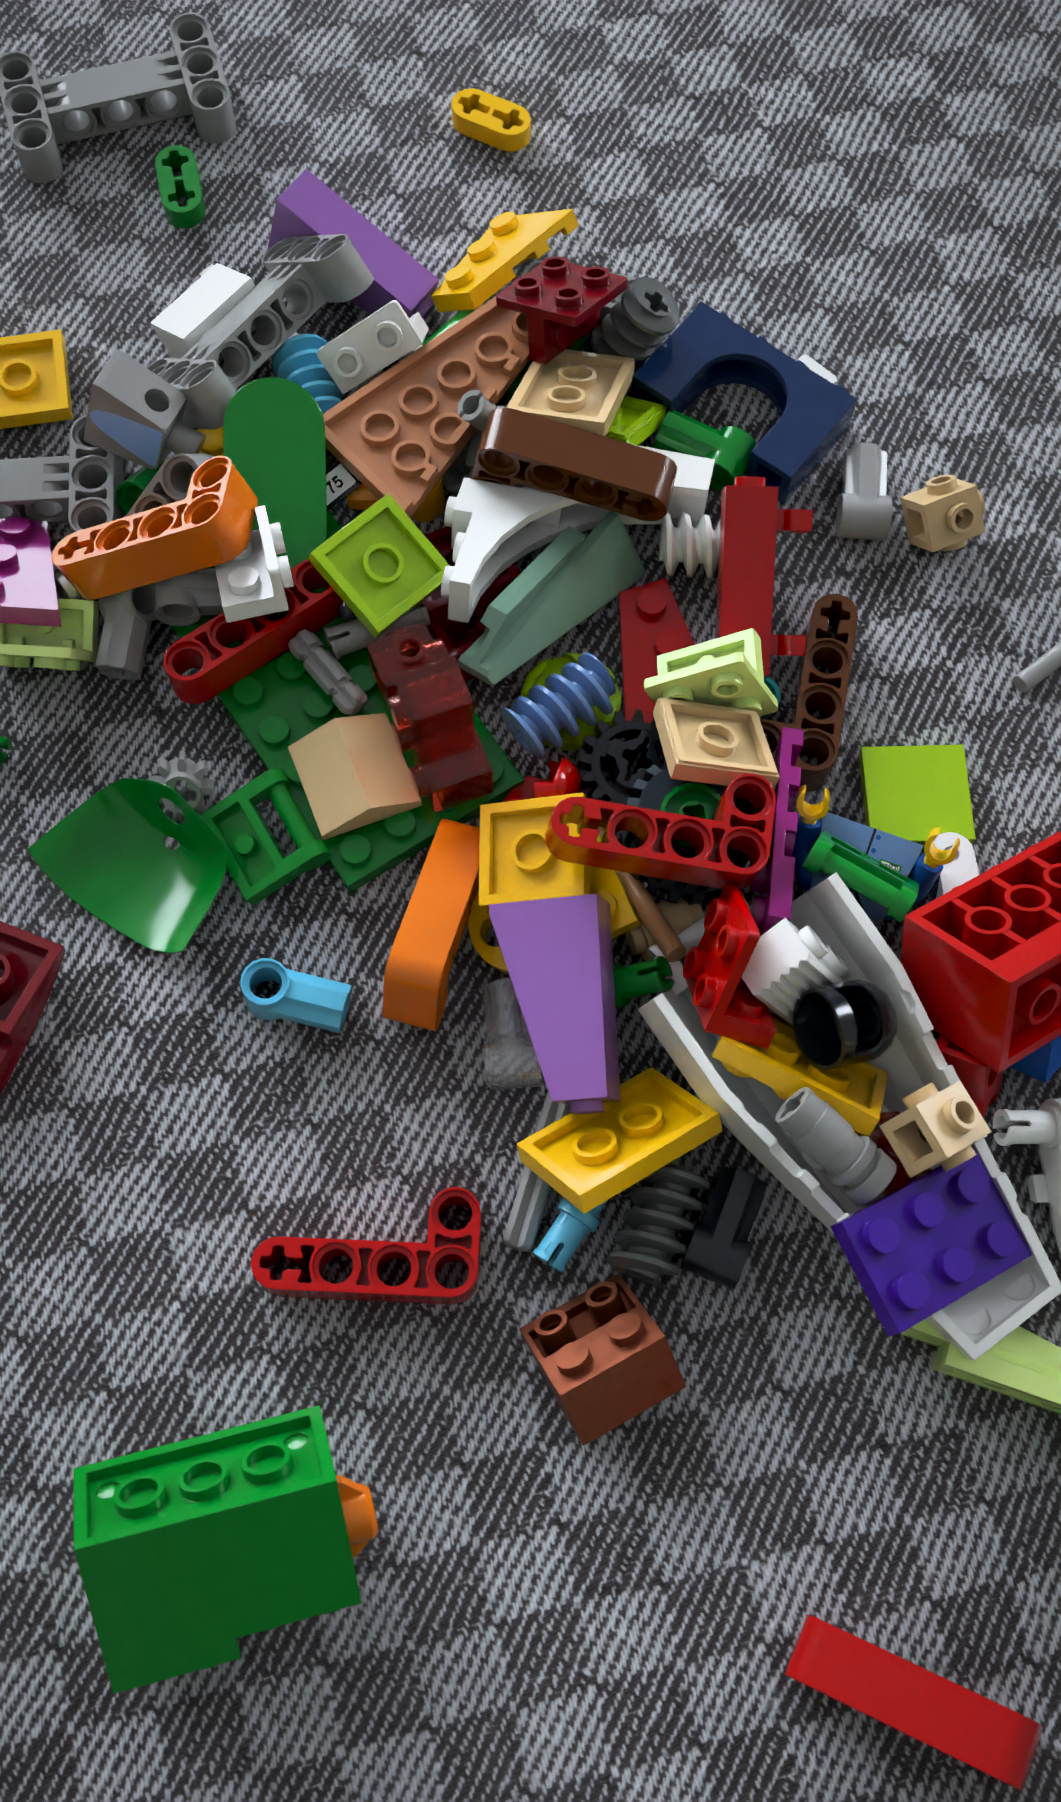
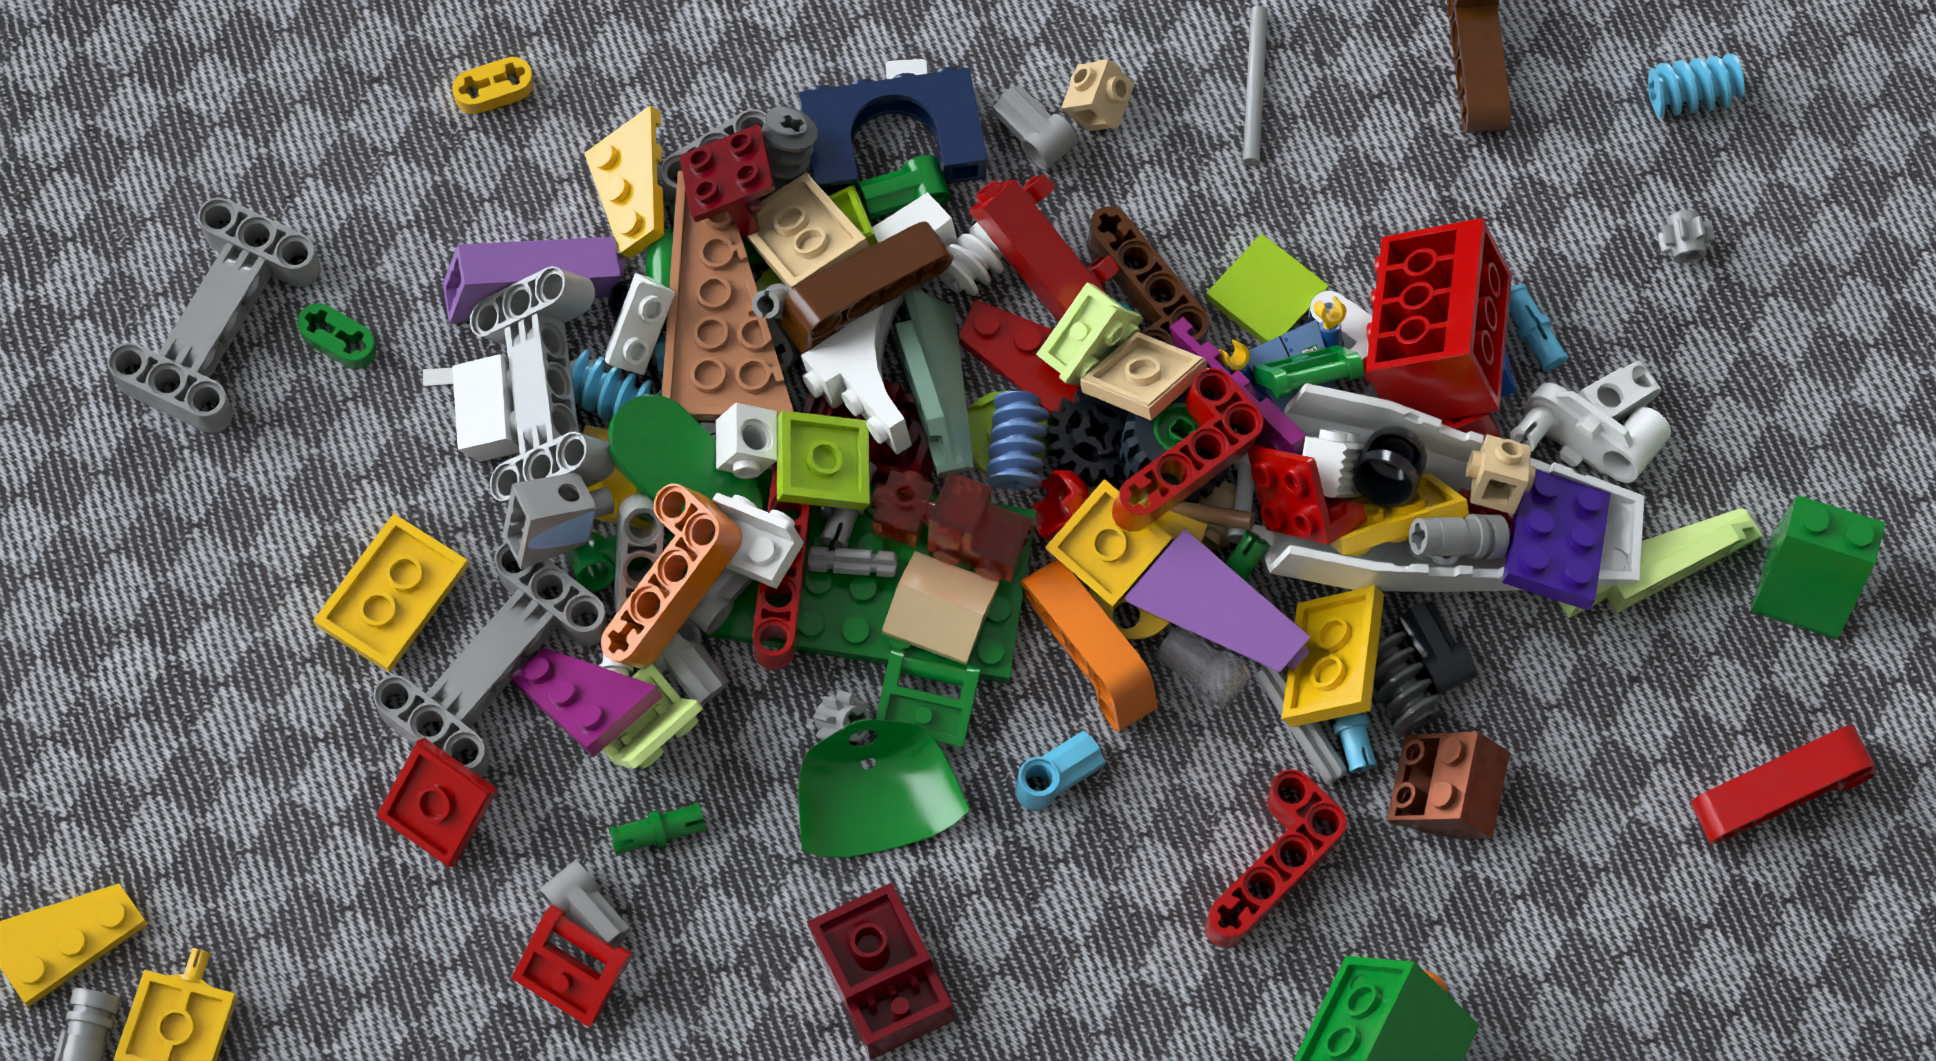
camera: 50 degrees left, 0 degrees up
(359, 486) = (742, 426): none -> white brick

